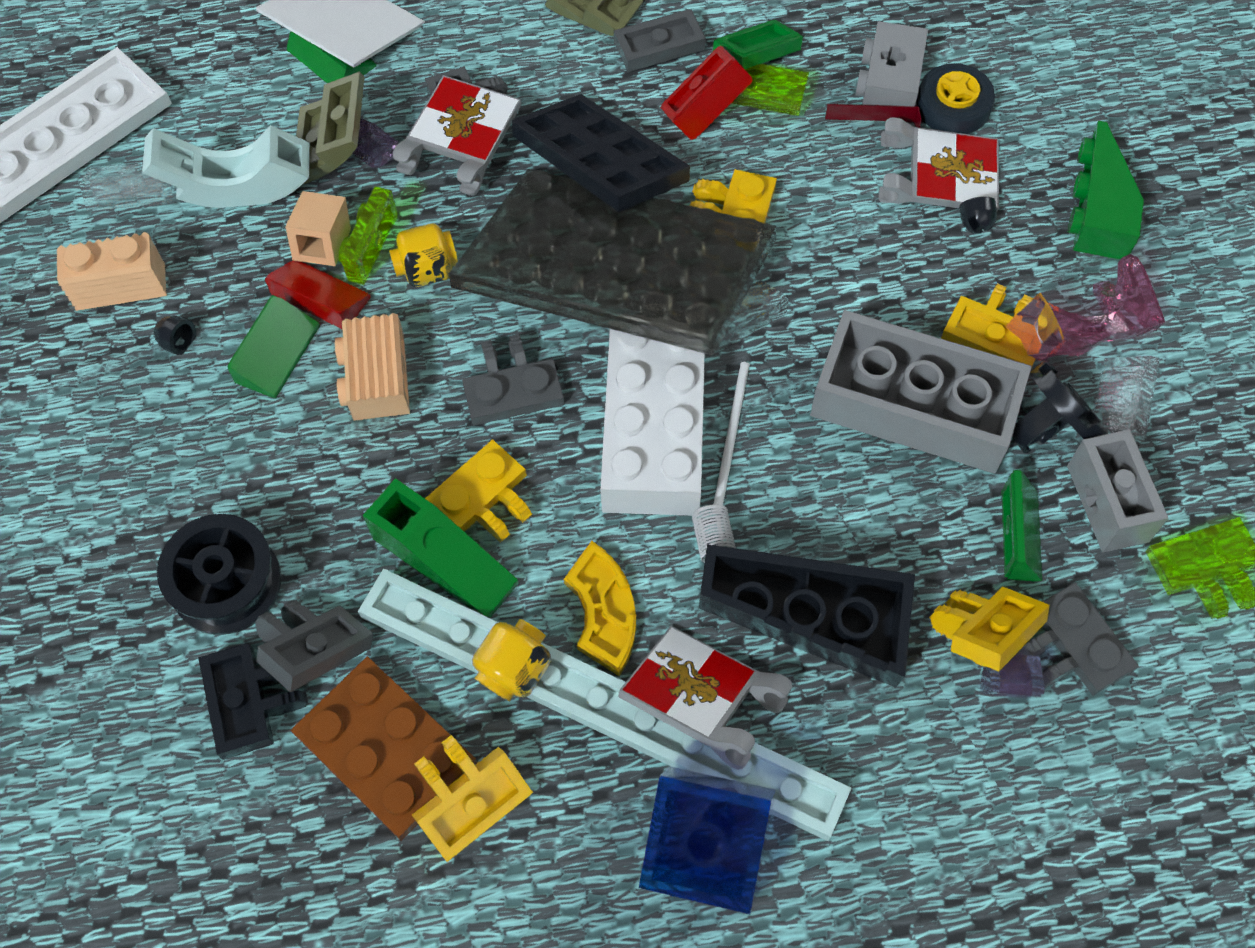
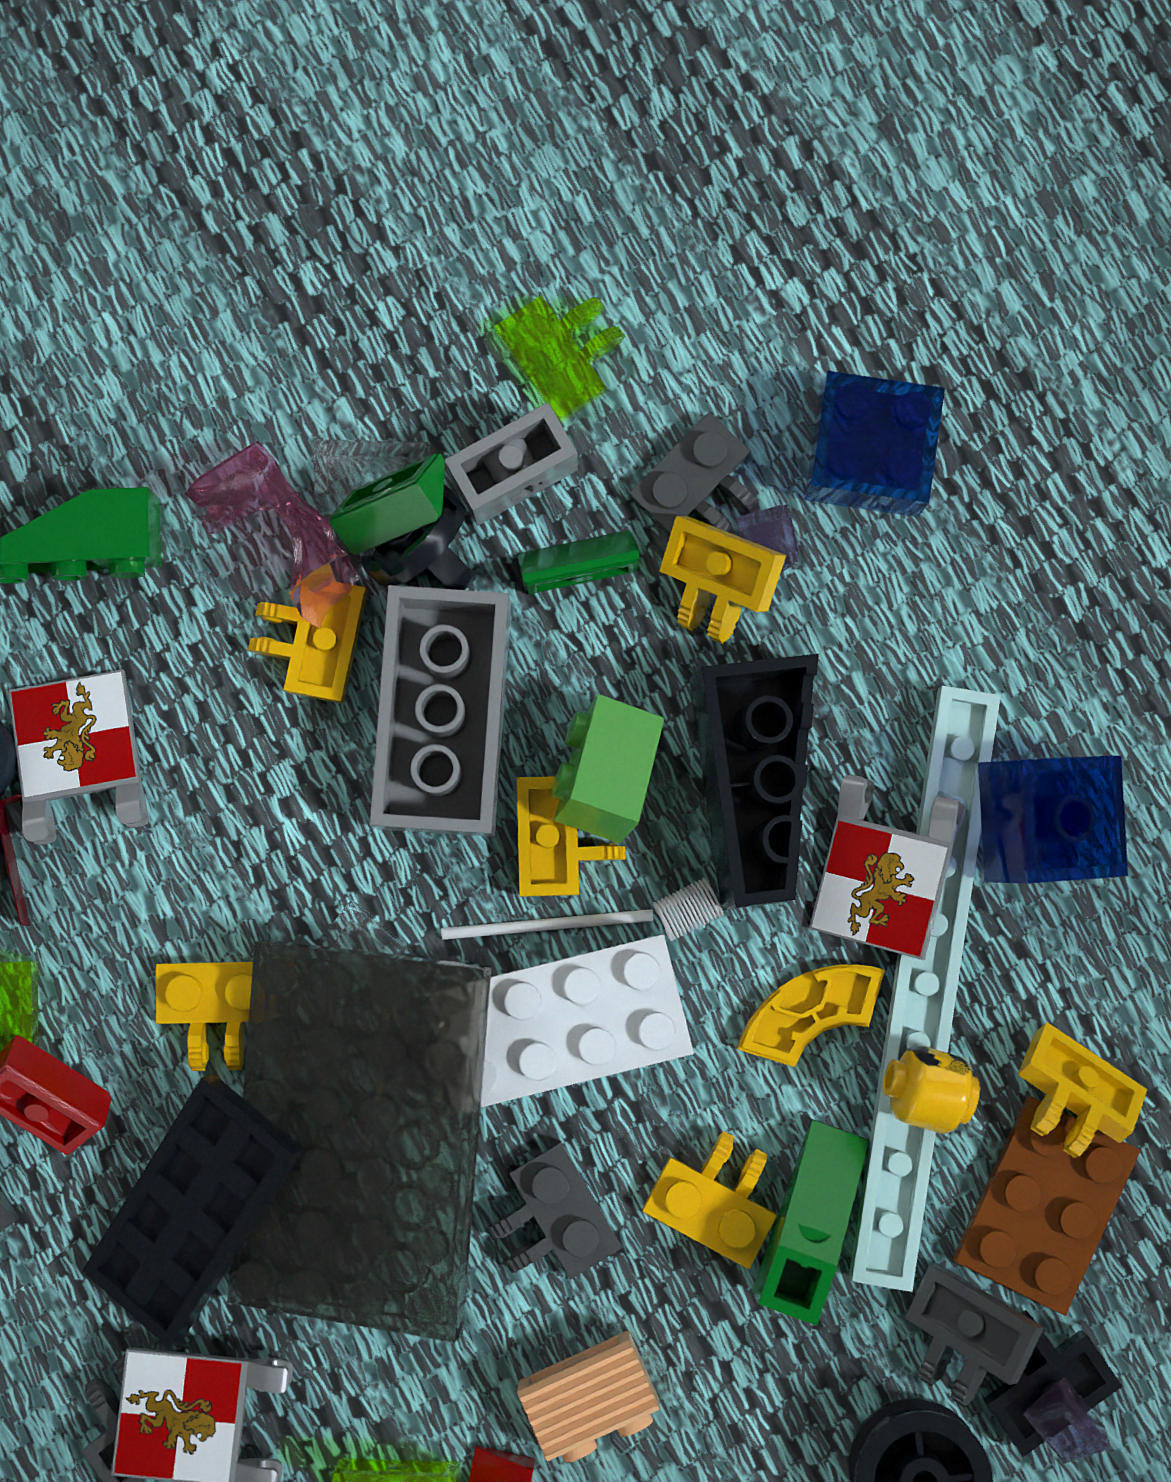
camera: 105 degrees left, 20 degrees up
(209, 697) = (1067, 1423): none -> slope
(424, 255) = (404, 1394): yellow head -> none
(799, 450) = (549, 848): none -> yellow hinge
(846, 492) = (607, 768): none -> bright green brick
(978, 214) = (148, 691): black hinge -> none
(1088, 793) = (874, 444): none -> clear blue brick
(1097, 388) = (391, 505): none -> green slope

